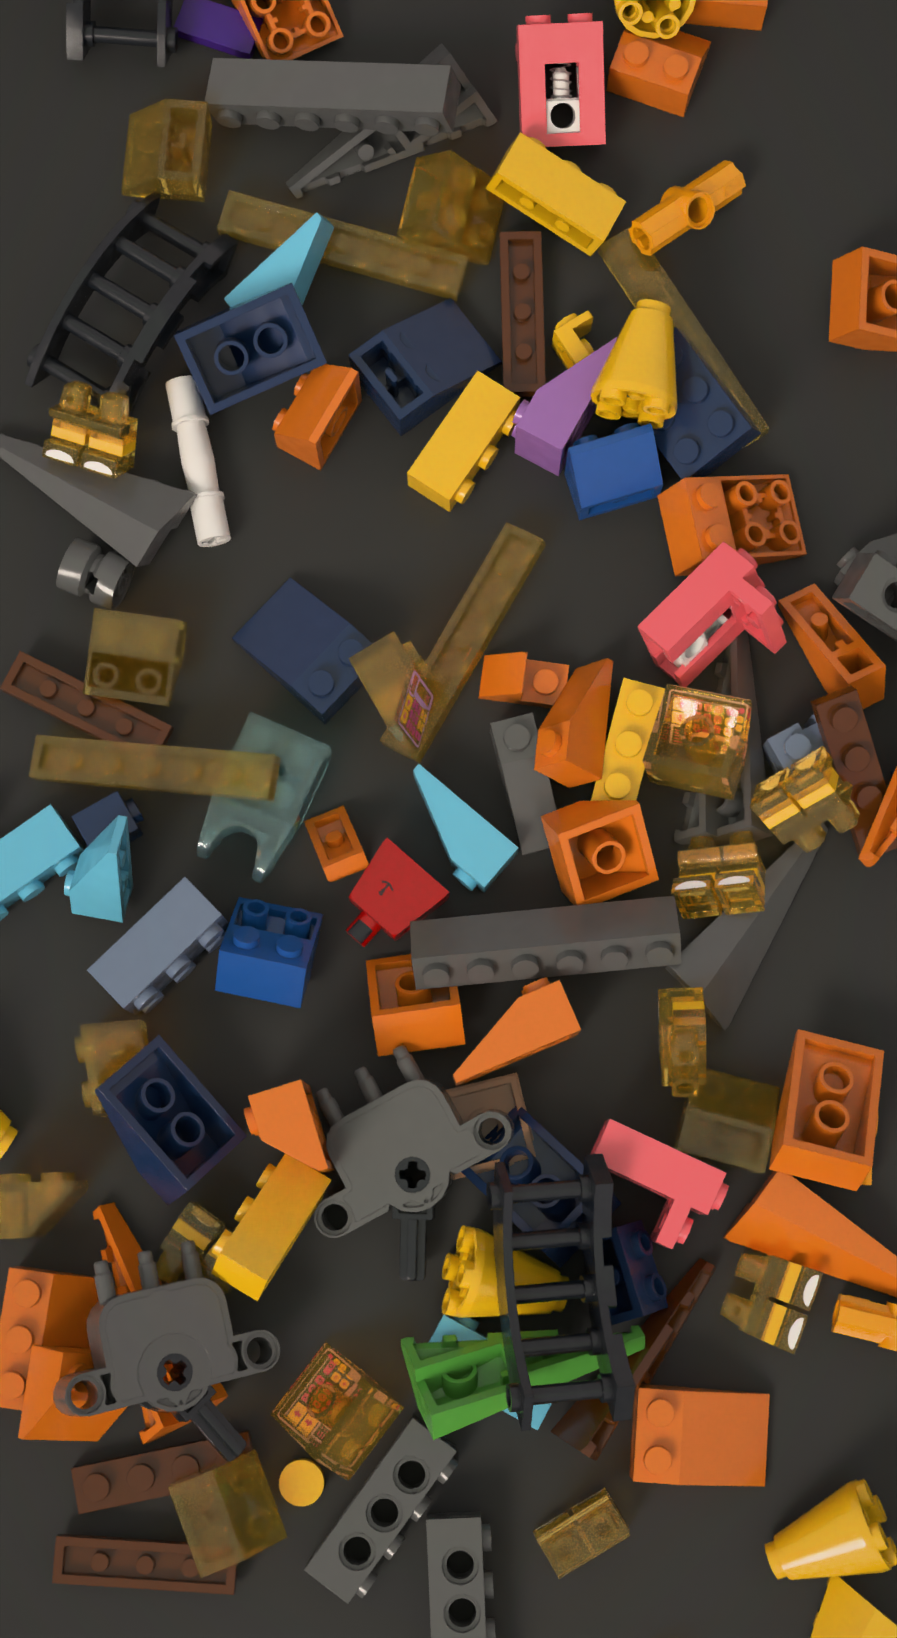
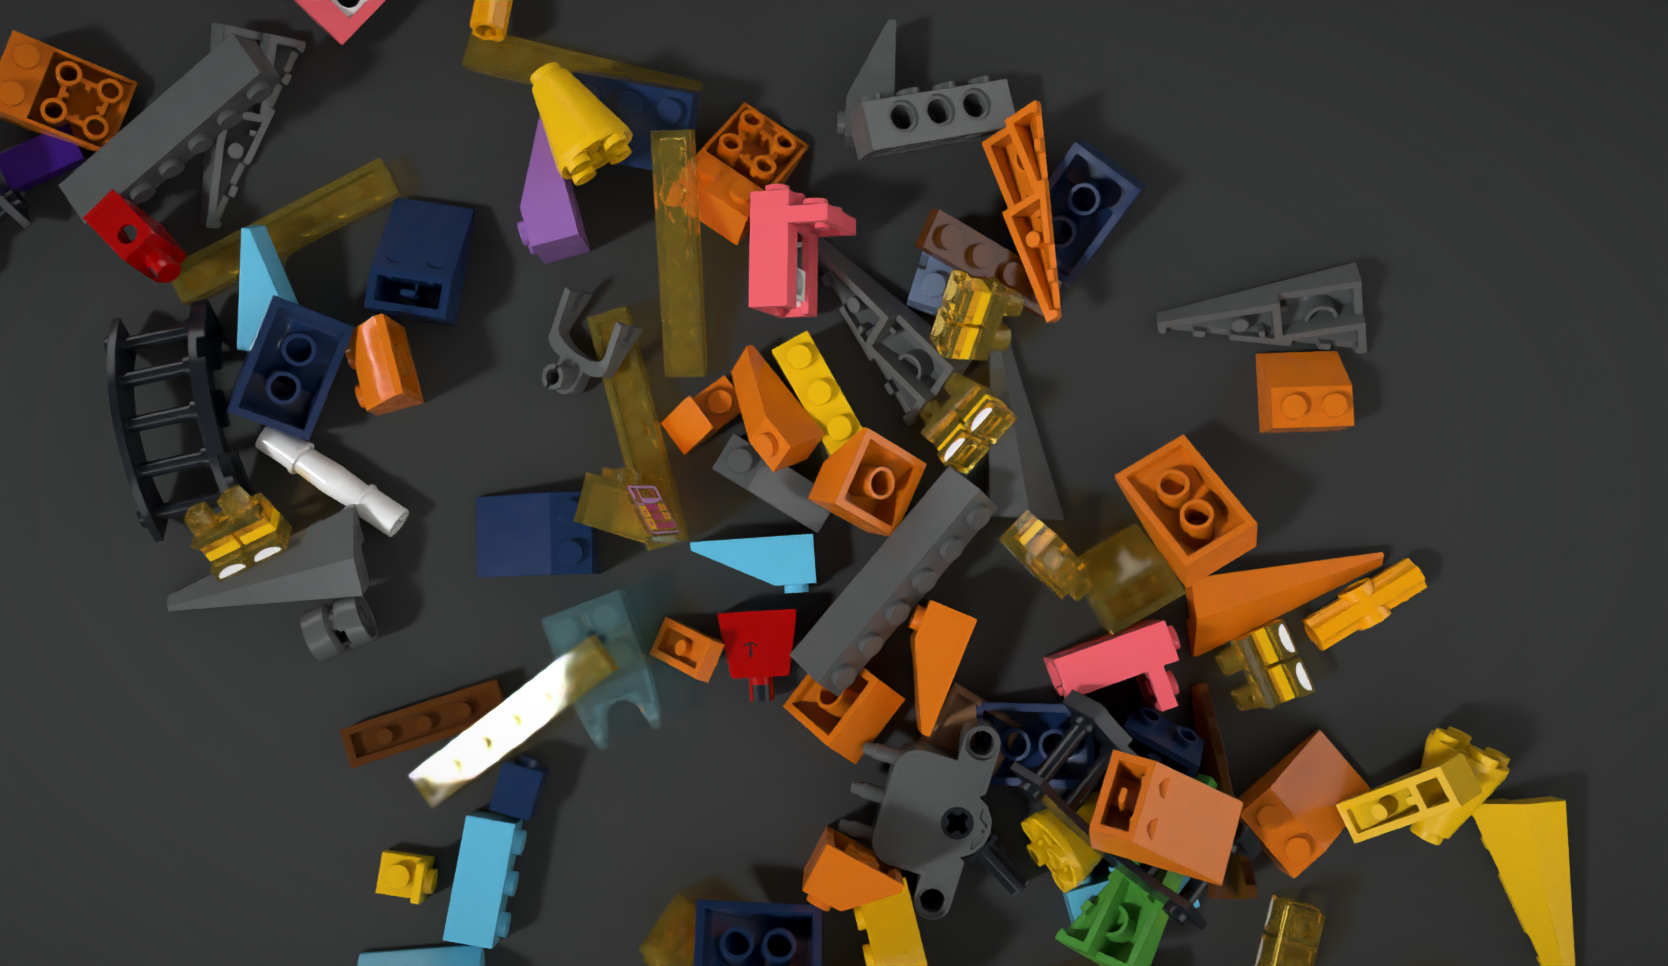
camera: 50 degrees left, 5 degrees up
(103, 875) = (551, 828): medium azure slope -> none
(134, 656) = (423, 657): clear yellow slope -> none
(160, 948) = (639, 839): sand blue brick -> none
(168, 150) = (93, 282): clear yellow slope -> none
(234, 168) = (153, 249): none -> red torso
(268, 952) = (713, 766): blue slope -> none
(451, 207) = (334, 132): clear yellow slope -> none
(461, 550) = (574, 366): none -> dark grey piece
(464, 442) = (504, 289): yellow brick -> none
(522, 312) = (455, 161): reddish brown plate -> none
(556, 194) = (397, 55): yellow brick -> none
(566, 338) = (506, 153): yellow bracket -> none
(575, 1312) = (1164, 819): none -> orange slope
(613, 470) = (623, 214): blue slope -> none
(624, 538) = (679, 252): none -> clear yellow plate
(699, 741) = (864, 344): clear yellow slope -> none
(787, 1505) = (1410, 798): none -> yellow slope
(833, 645) = (888, 192): orange slope -> none

